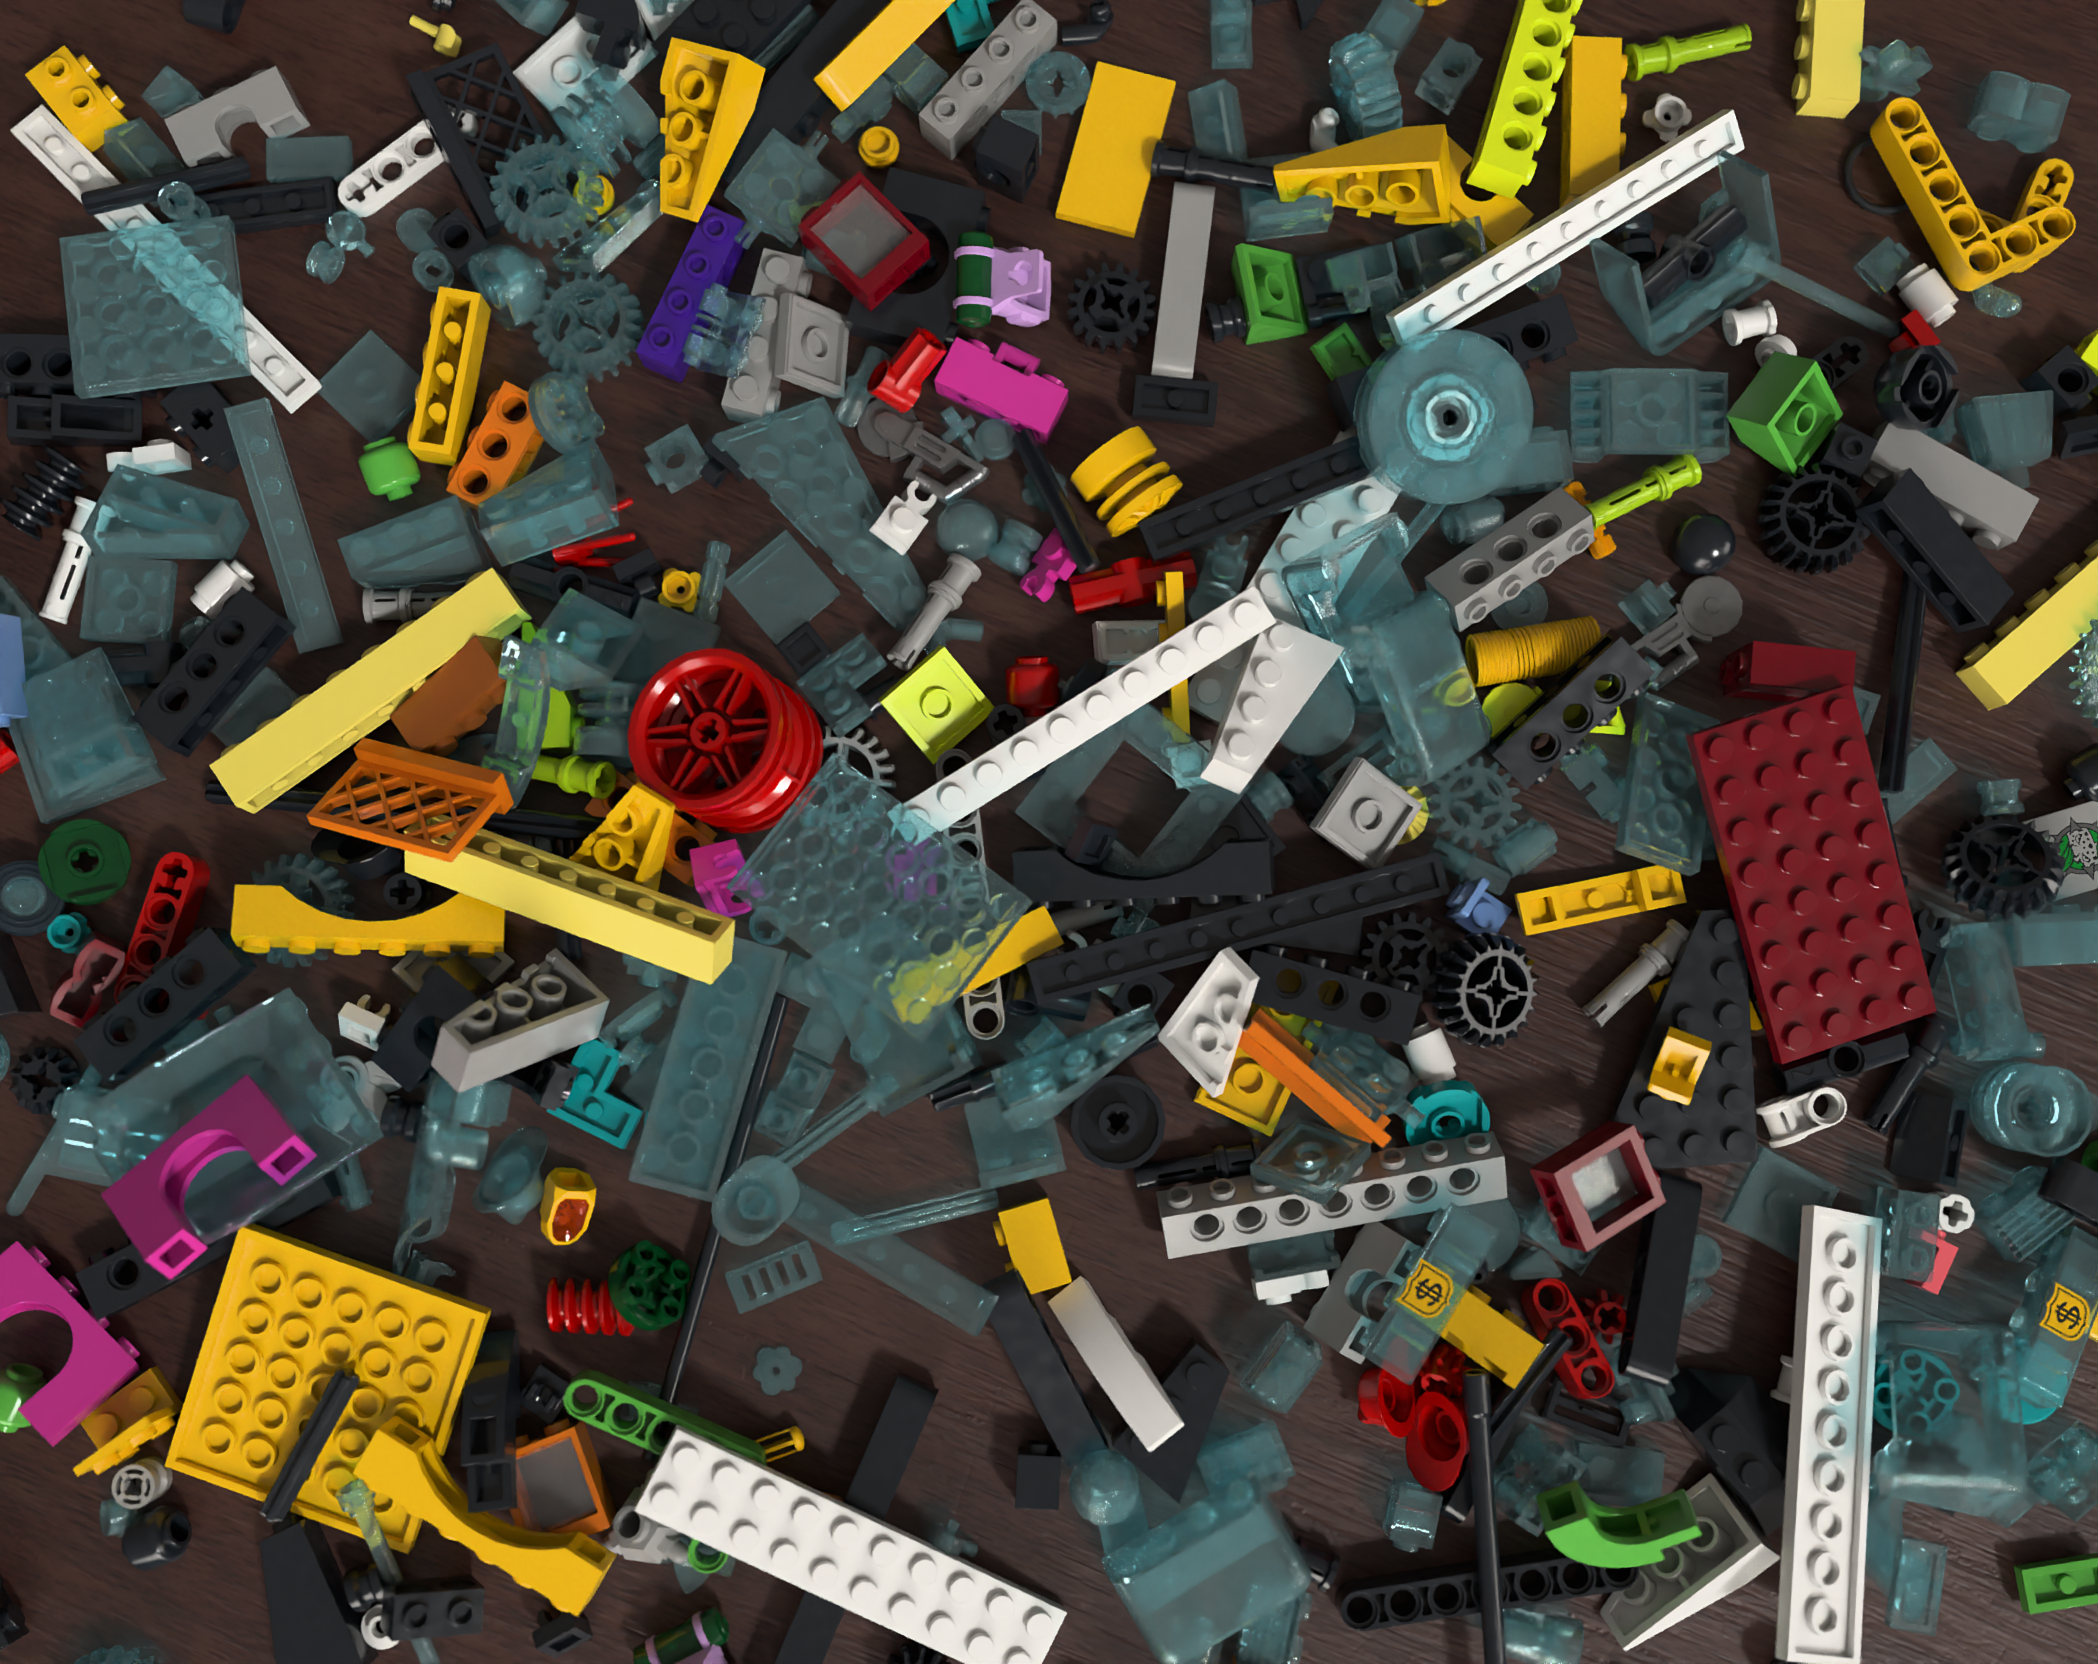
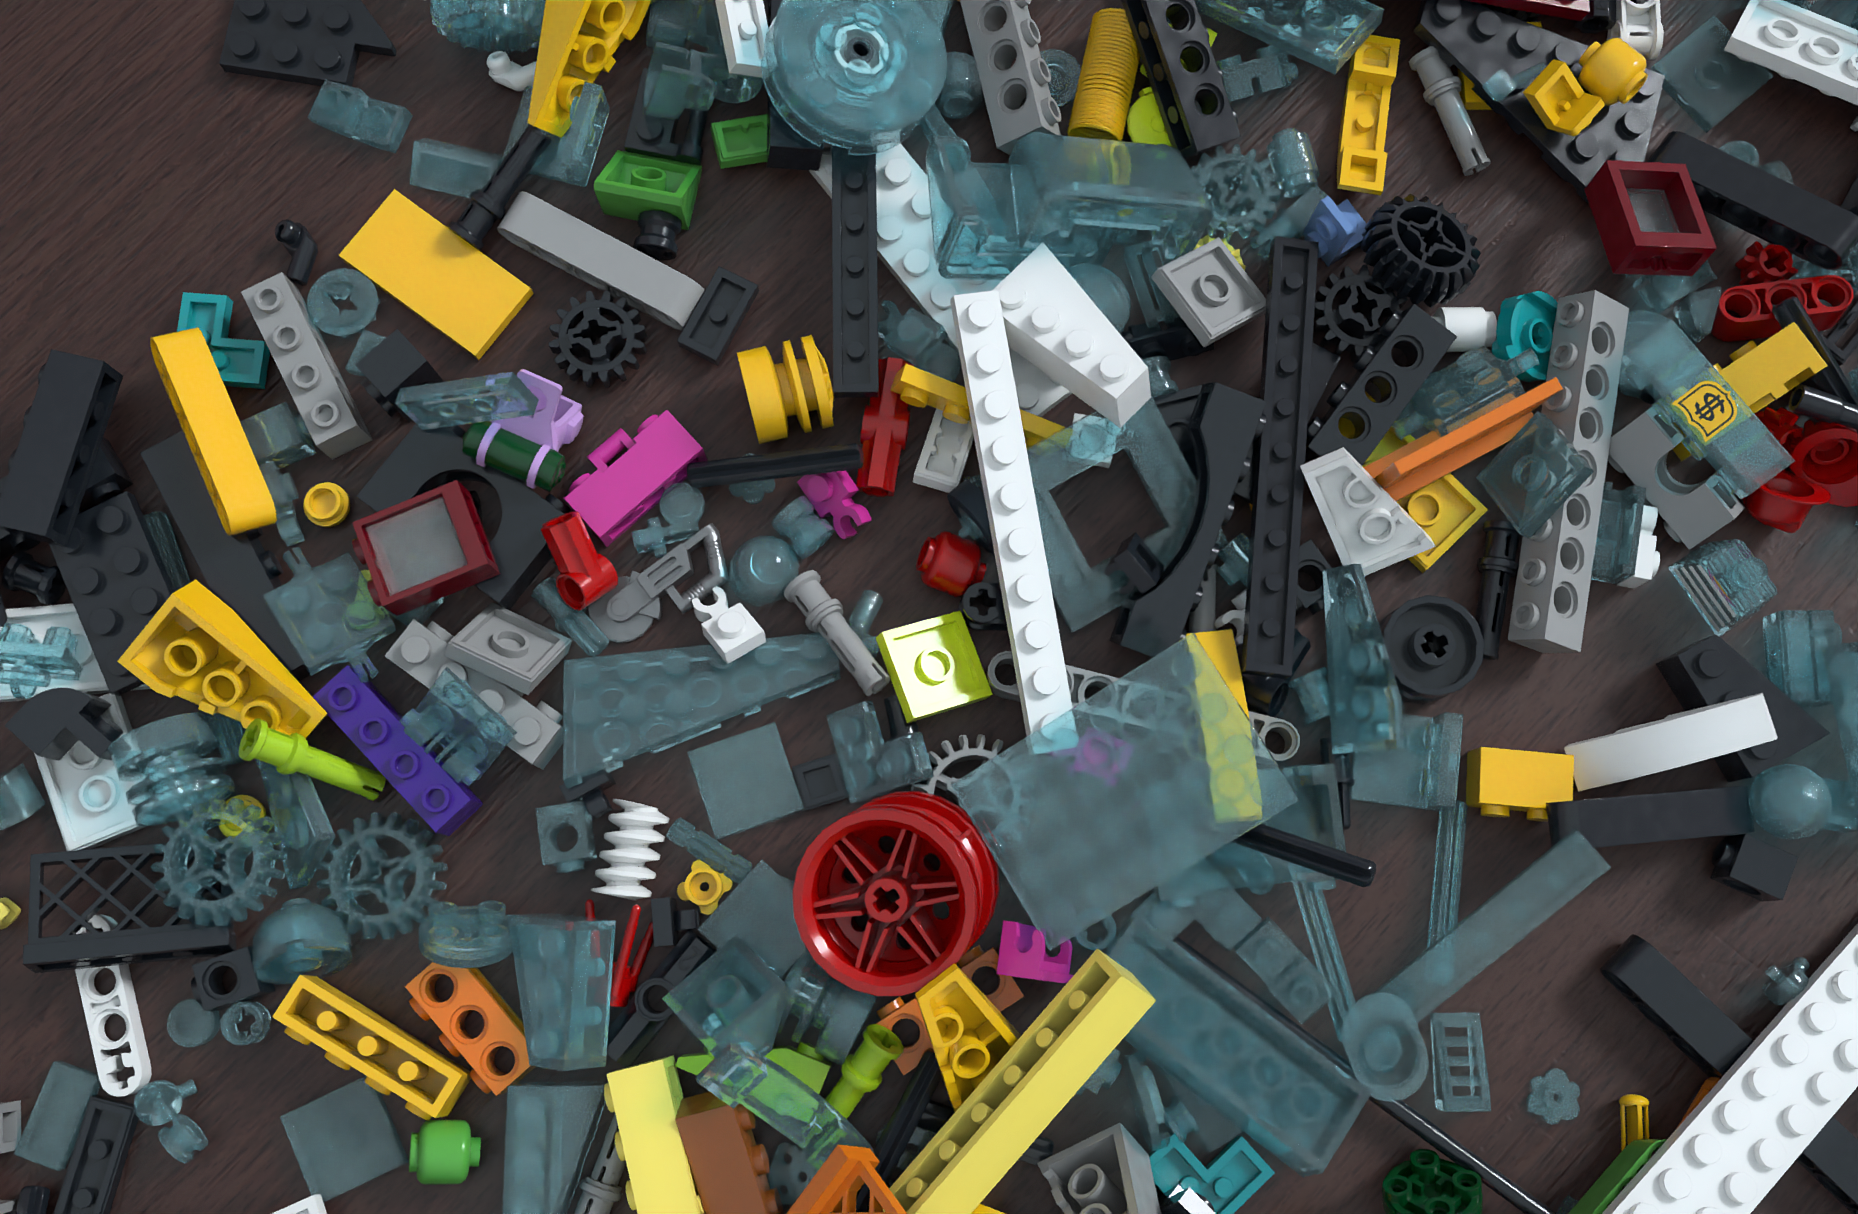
camera: 70 degrees left, 5 degrees down
(652, 211) = (294, 755): none -> lime pin
(684, 517) = (630, 850): none -> white piece
(888, 1076) = (1309, 854): none -> black axle
(999, 219) = (467, 401): none -> clear light blue plate
(1671, 1007) = (1502, 85): none -> clear light blue hand
(1728, 1104) = (1612, 71): none -> yellow head

